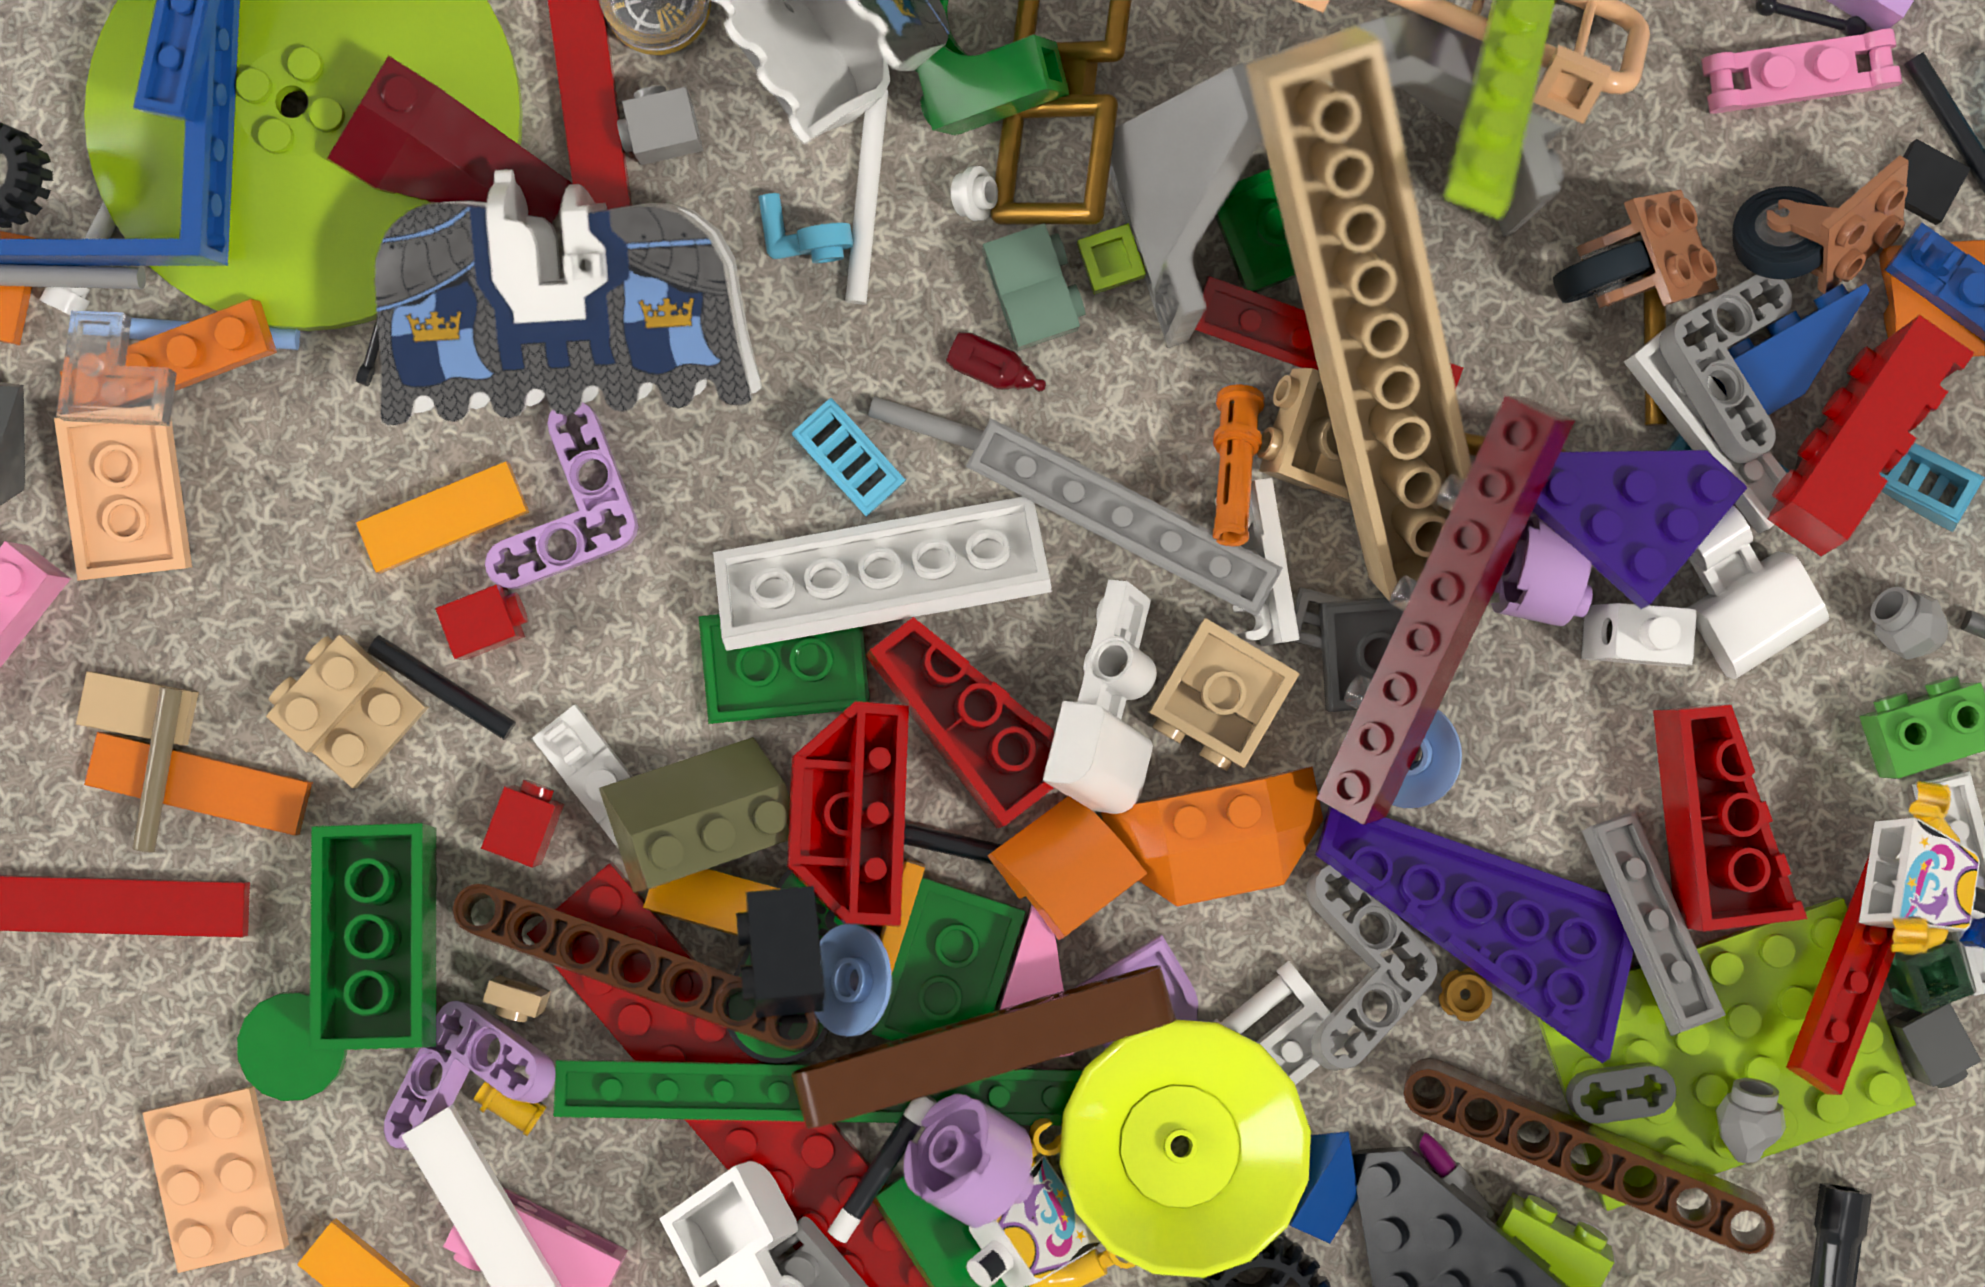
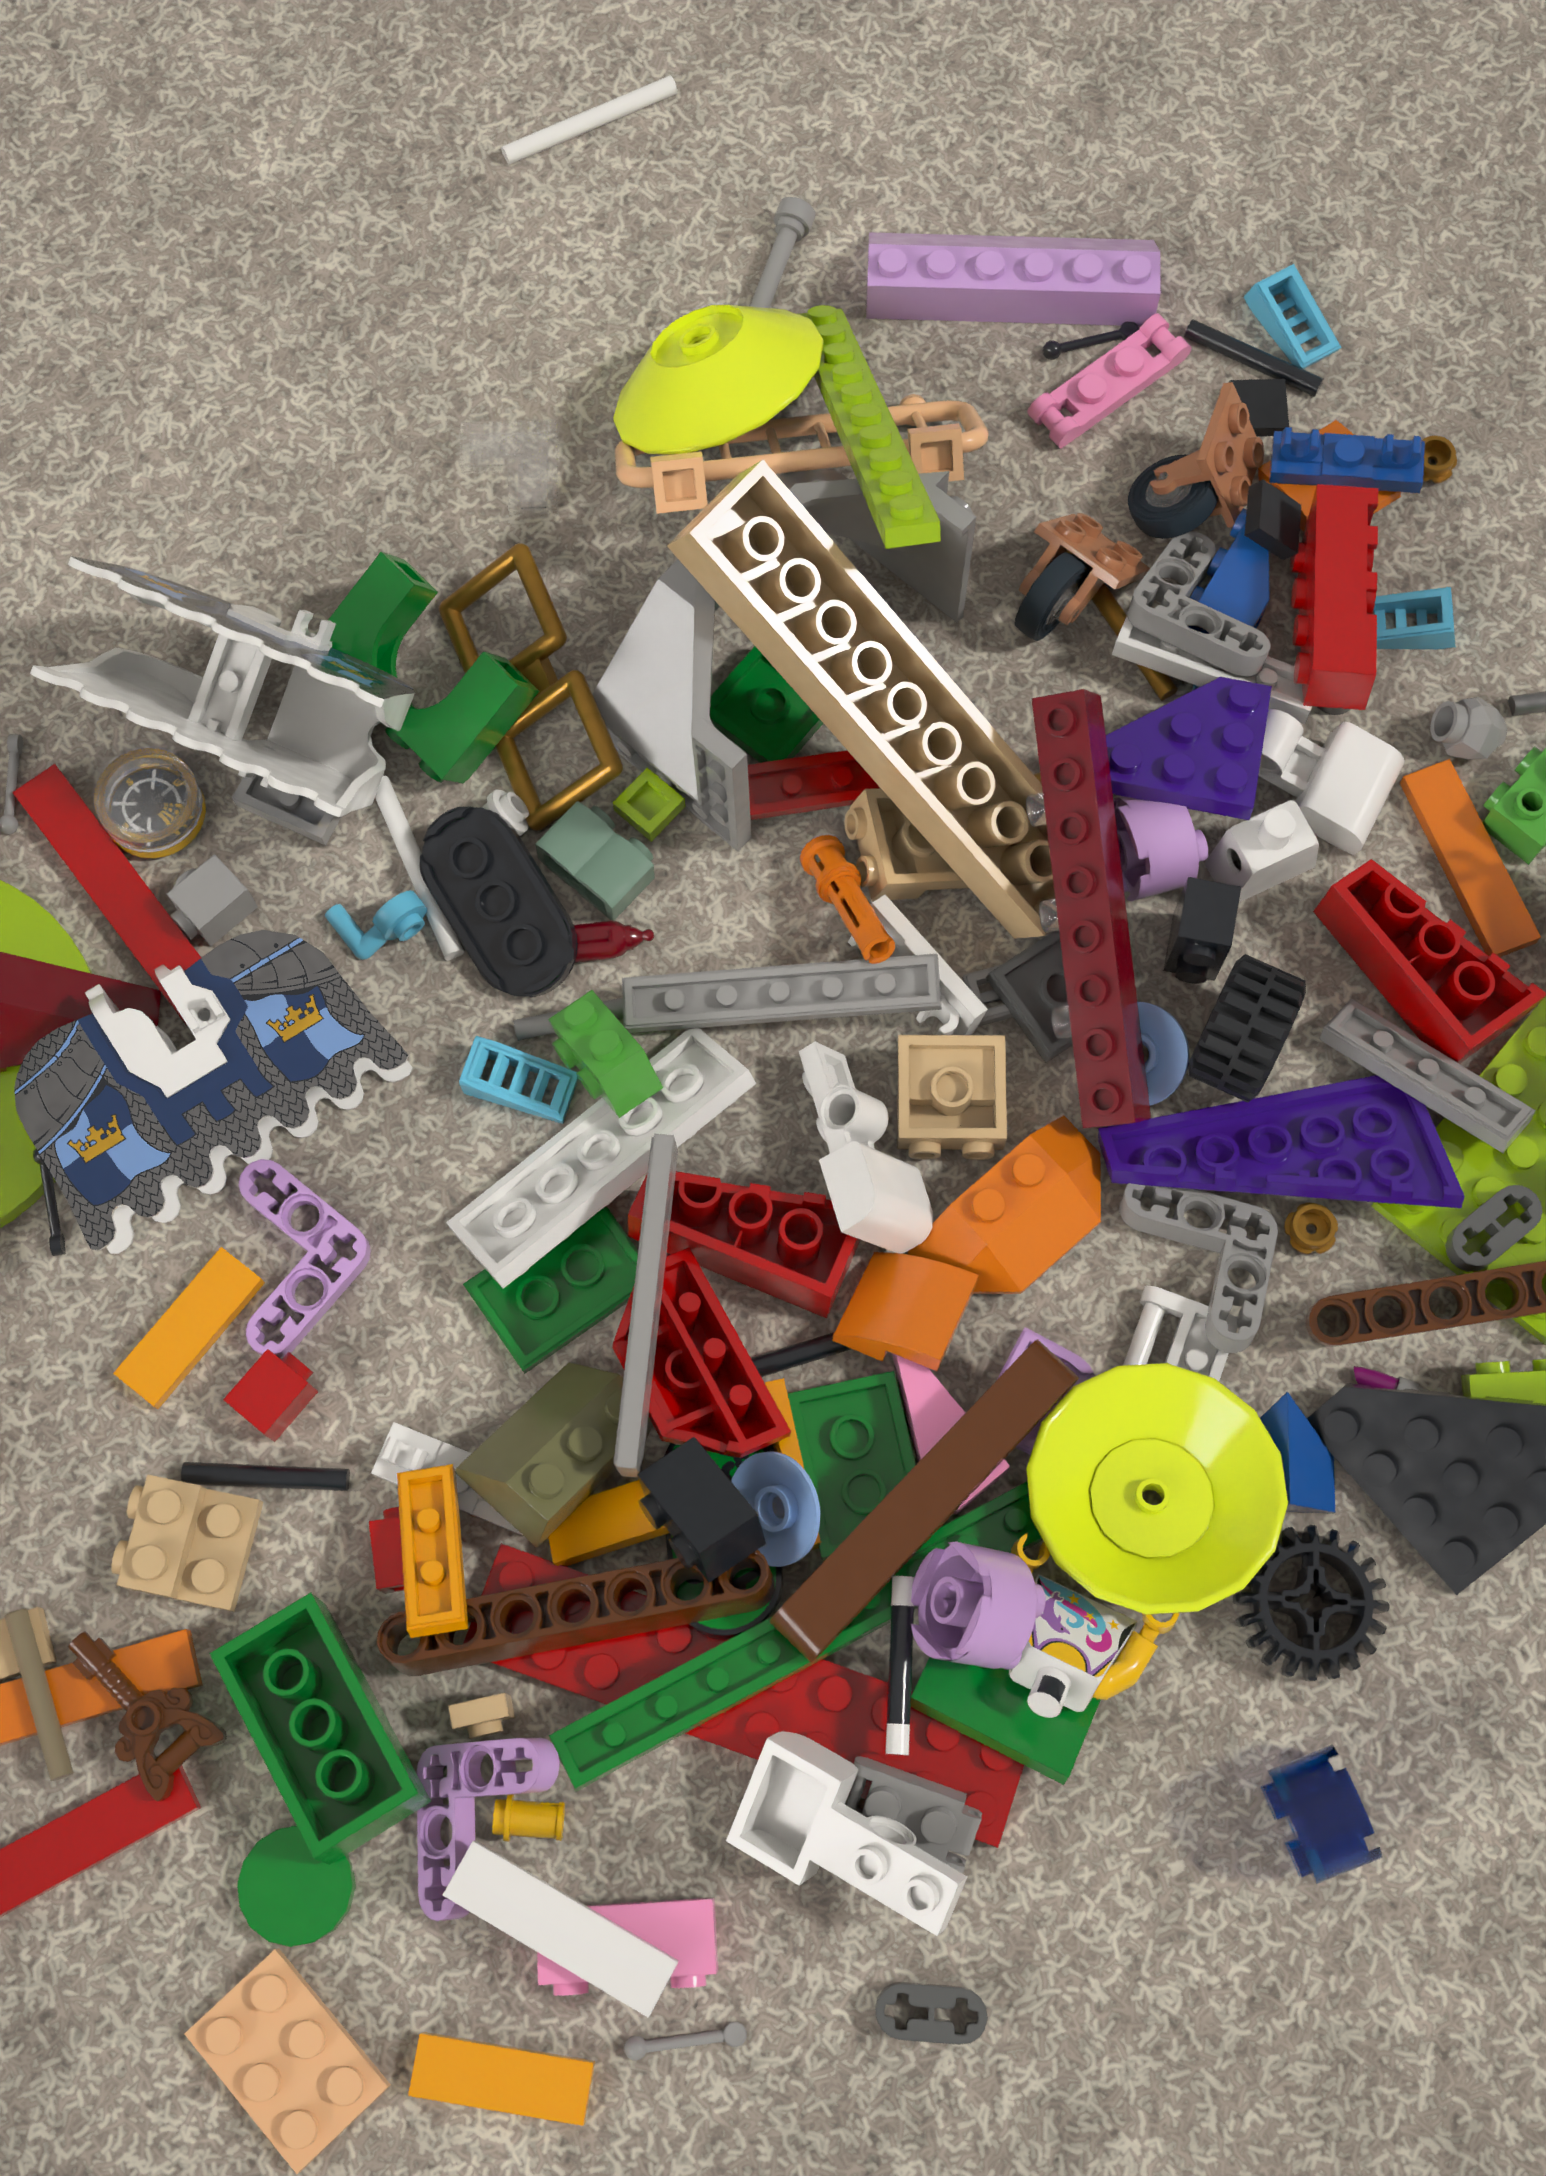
camera: 30 degrees left, 15 degrees down
(237, 842) = (147, 1718): none -> reddish brown piece
(542, 848) = (432, 1551): none -> light orange tile
(837, 747) = (646, 1306): none -> light grey tile
(920, 277) = (498, 902): none -> black tile
(934, 484) = (605, 1054): none -> bright green brick
(1518, 795) = (1247, 1028): none -> black tyre
(1536, 679) = (1202, 930): none -> black brick
(1827, 742) = (1469, 859): none -> orange tile
(1858, 318) = (1273, 520): none -> black piece

